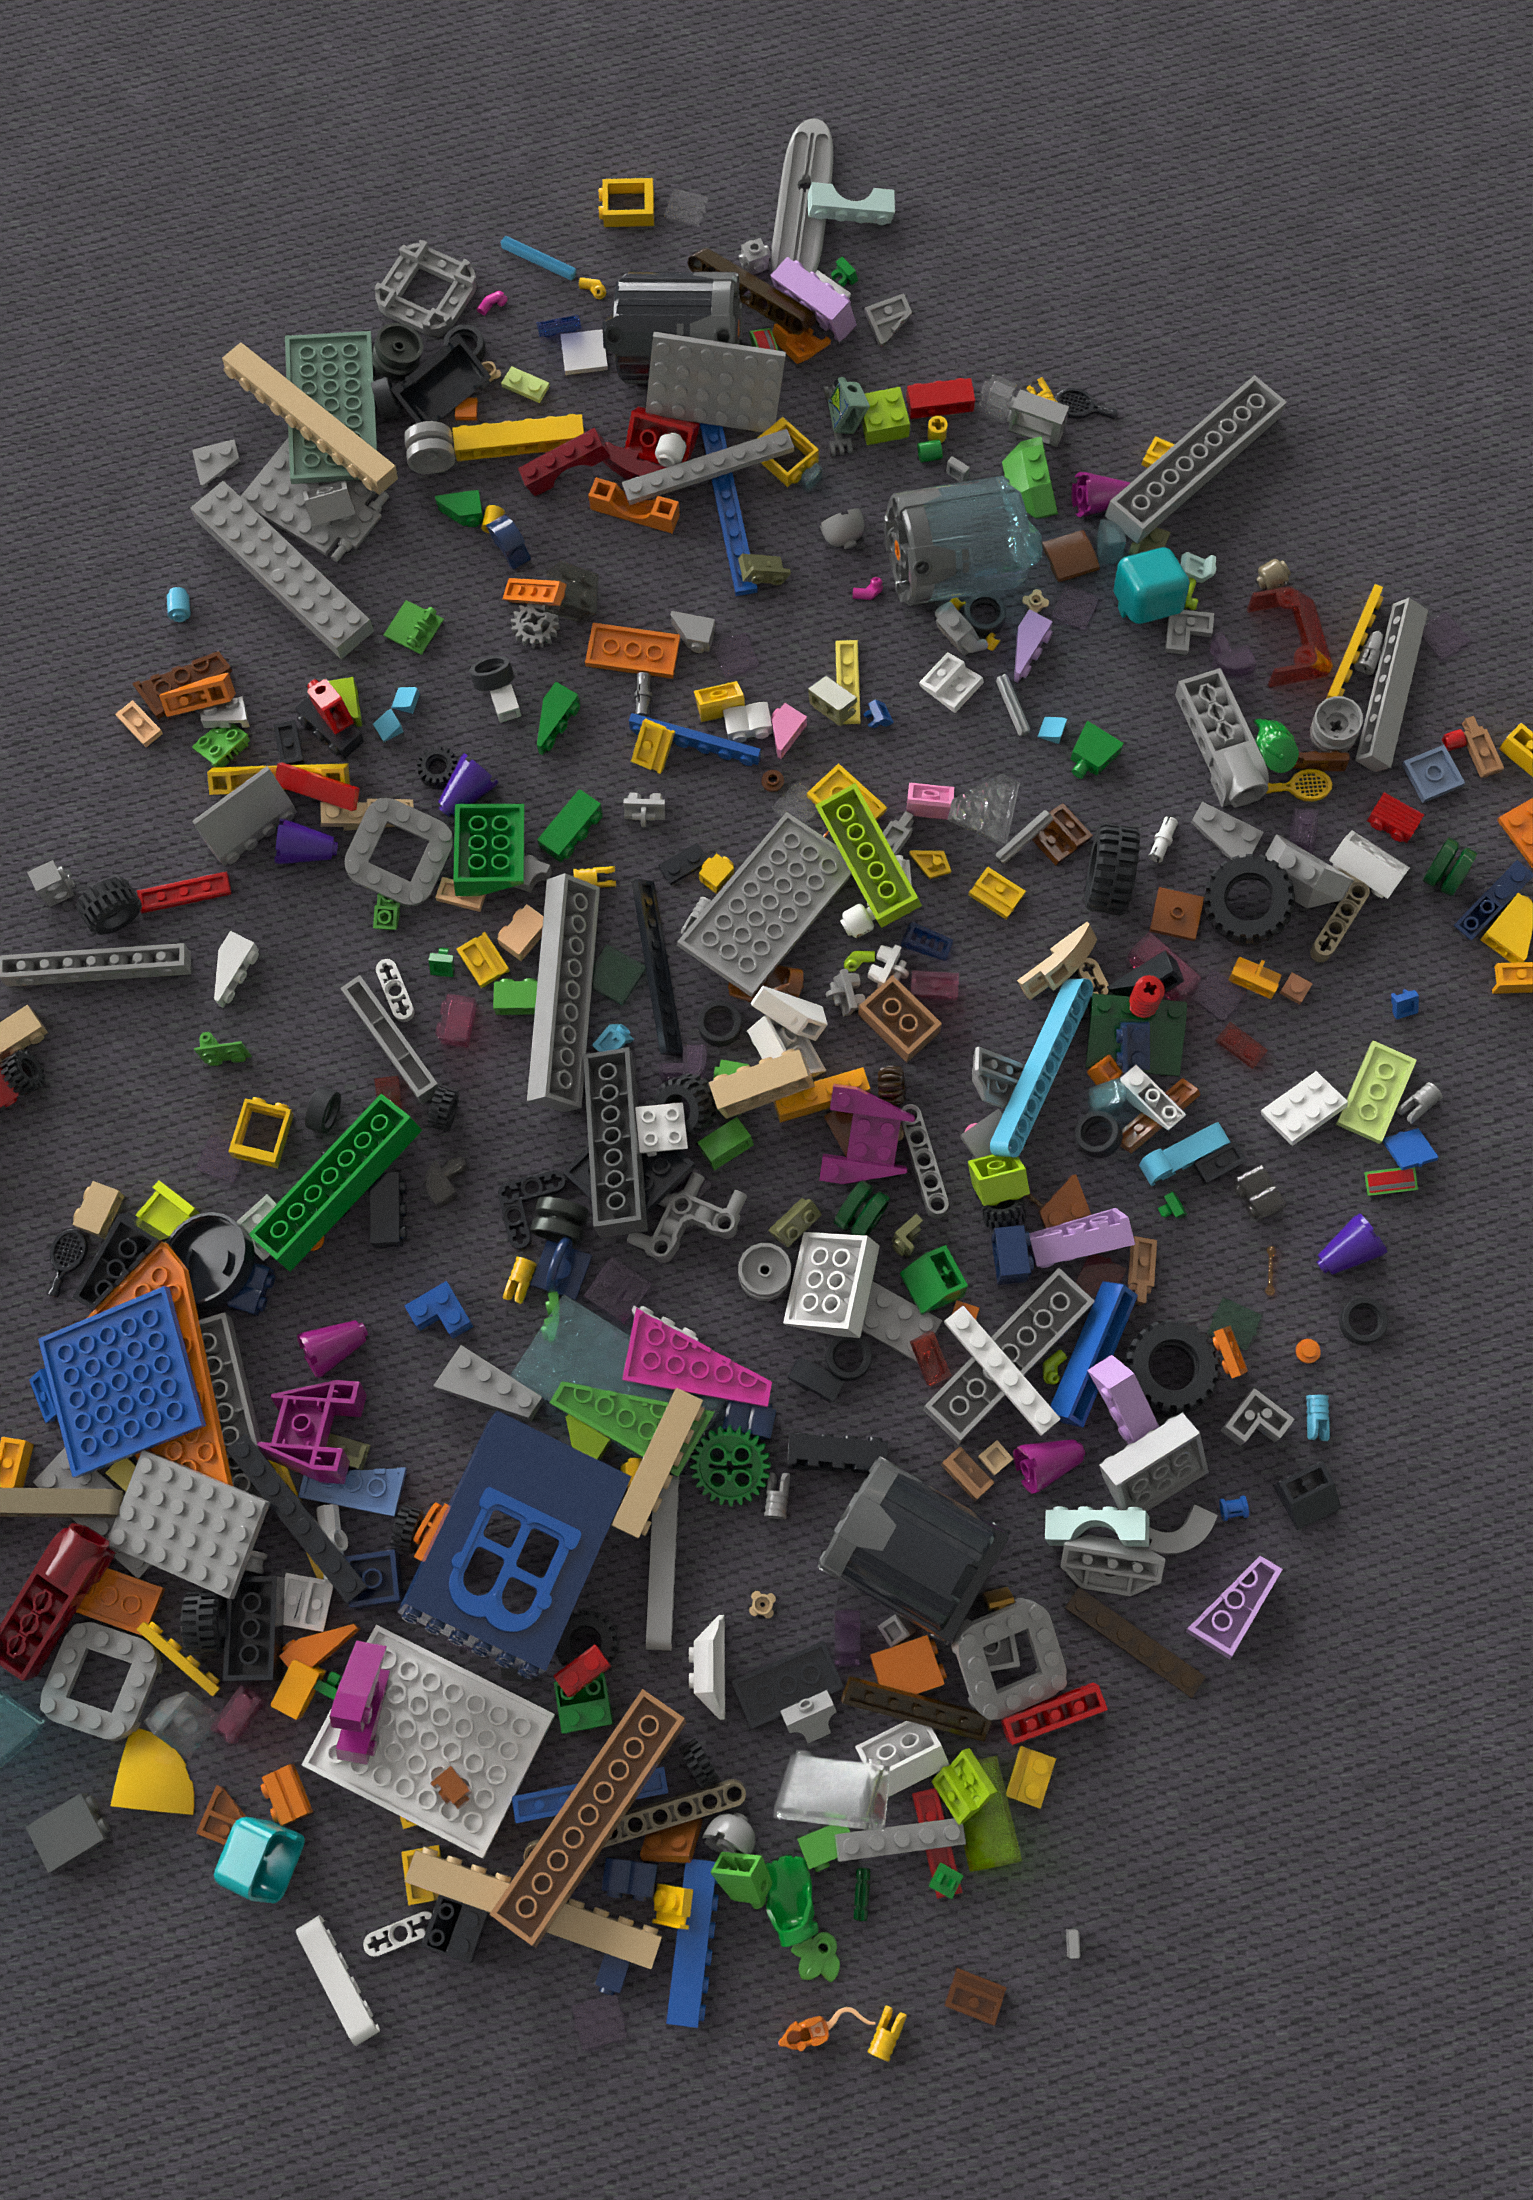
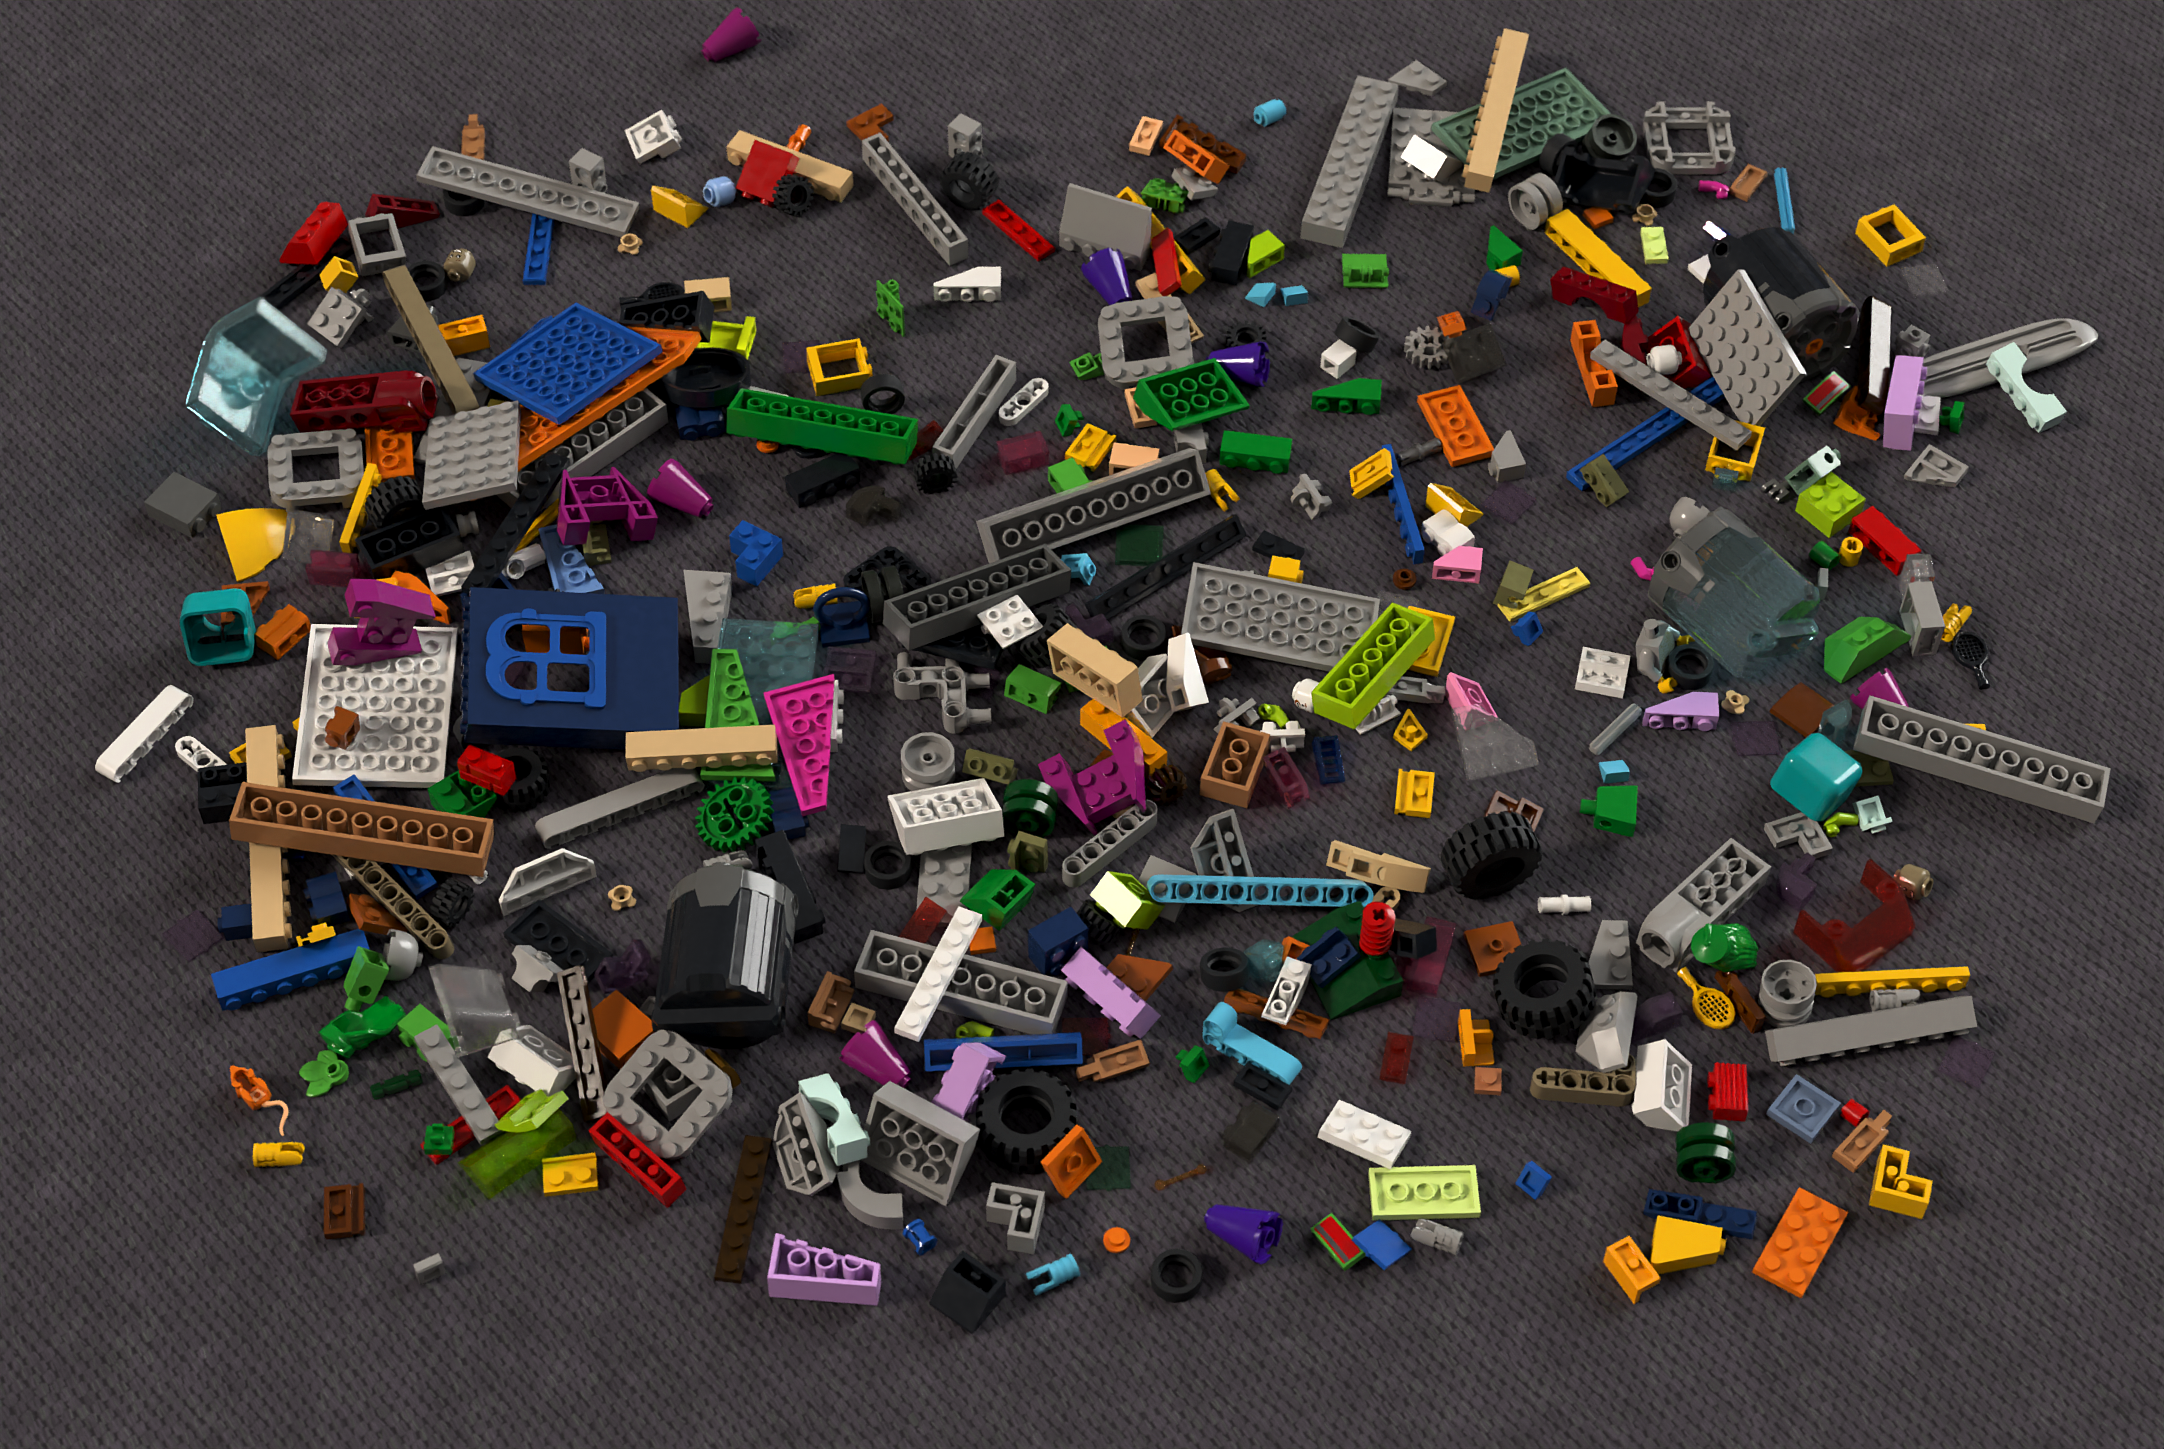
camera: 60 degrees right, 20 degrees down
(324, 698) = (1242, 227): red torso -> none
(500, 273) = (1747, 182): none -> medium nougat tile
(1024, 836) = (1484, 788): light grey axle -> none

